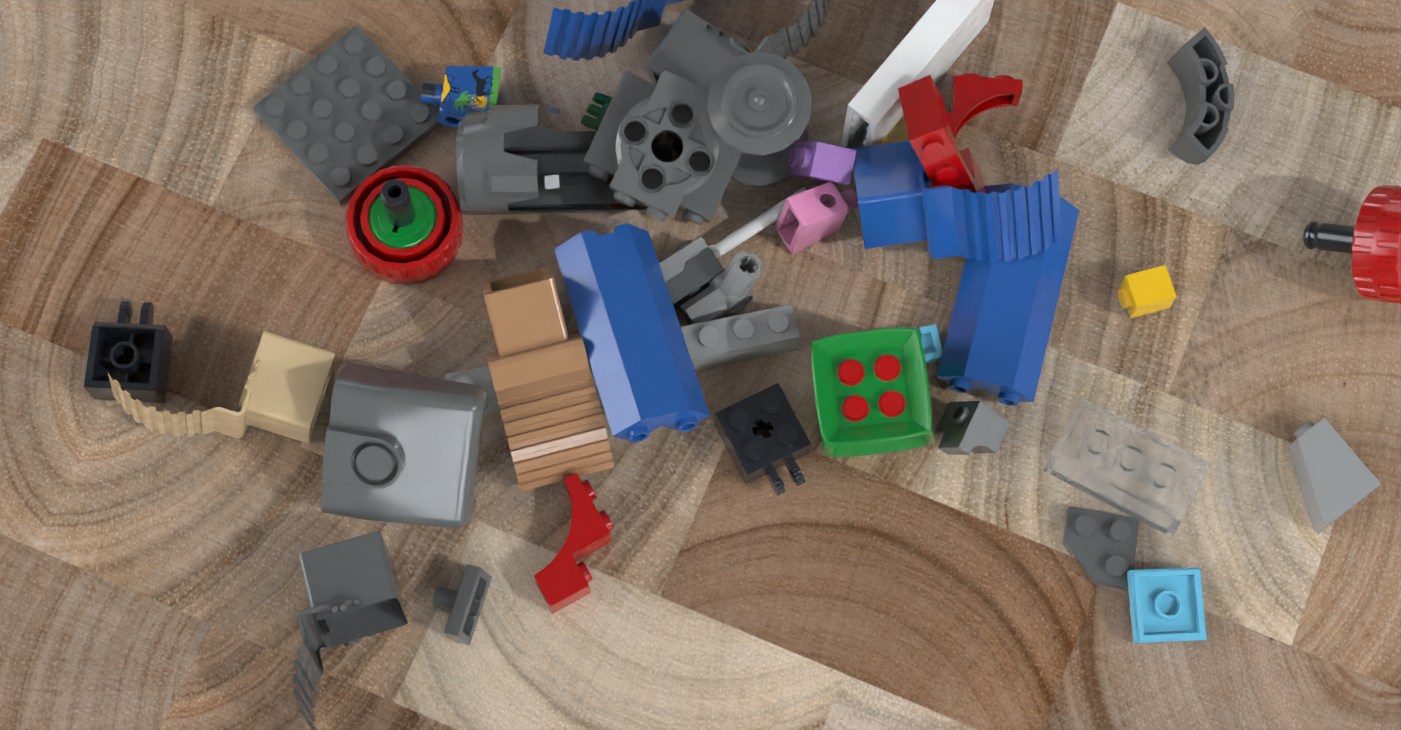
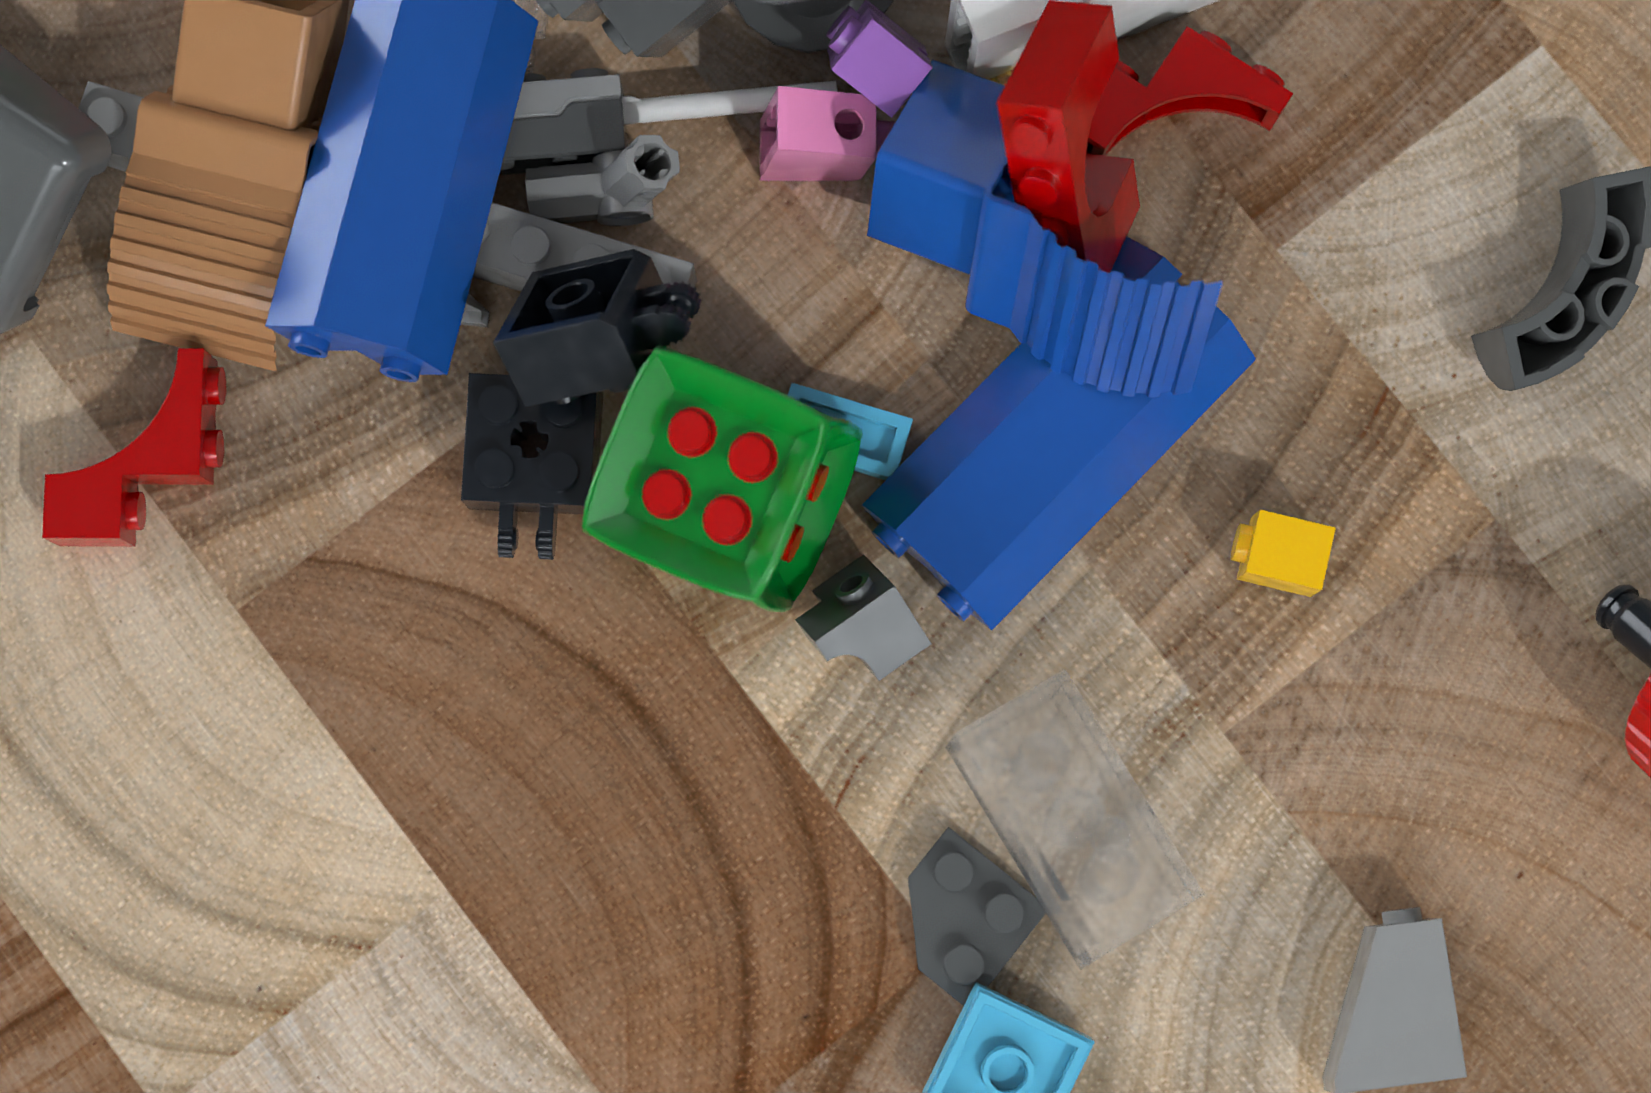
camera: 30 degrees right, 10 degrees up
(769, 353) = (591, 326): none -> black hinge

